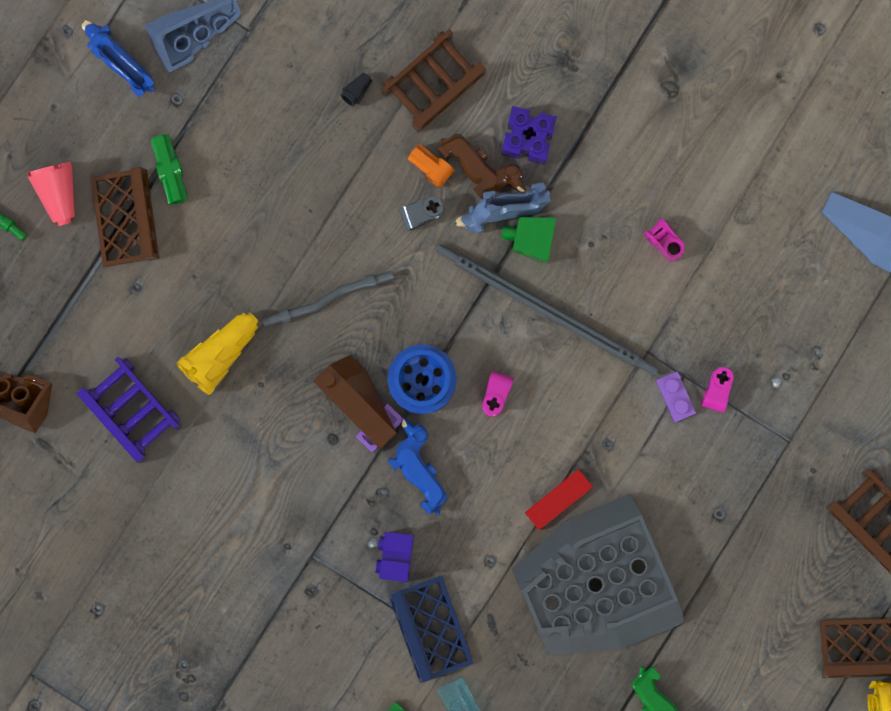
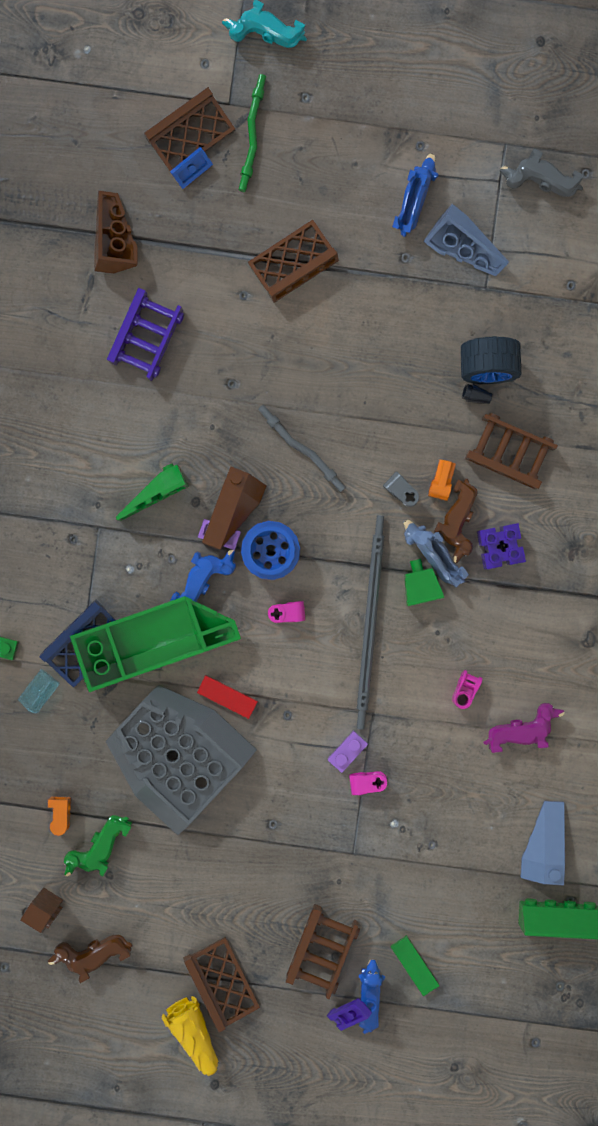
camera: 65 degrees right, 5 degrees up
(55, 191) = (288, 196): coral cone -> none
(169, 169) = (346, 277): green piece -> none
(211, 359) = (212, 380): yellow cone -> none
(300, 464) = (161, 487): none -> green wedge
(328, 57) = (491, 360): none -> black wheel
(395, 556) = (123, 593): dark purple brick -> none
(460, 554) = (150, 641): none -> green slope
(738, 199) = (524, 733): none -> magenta animal

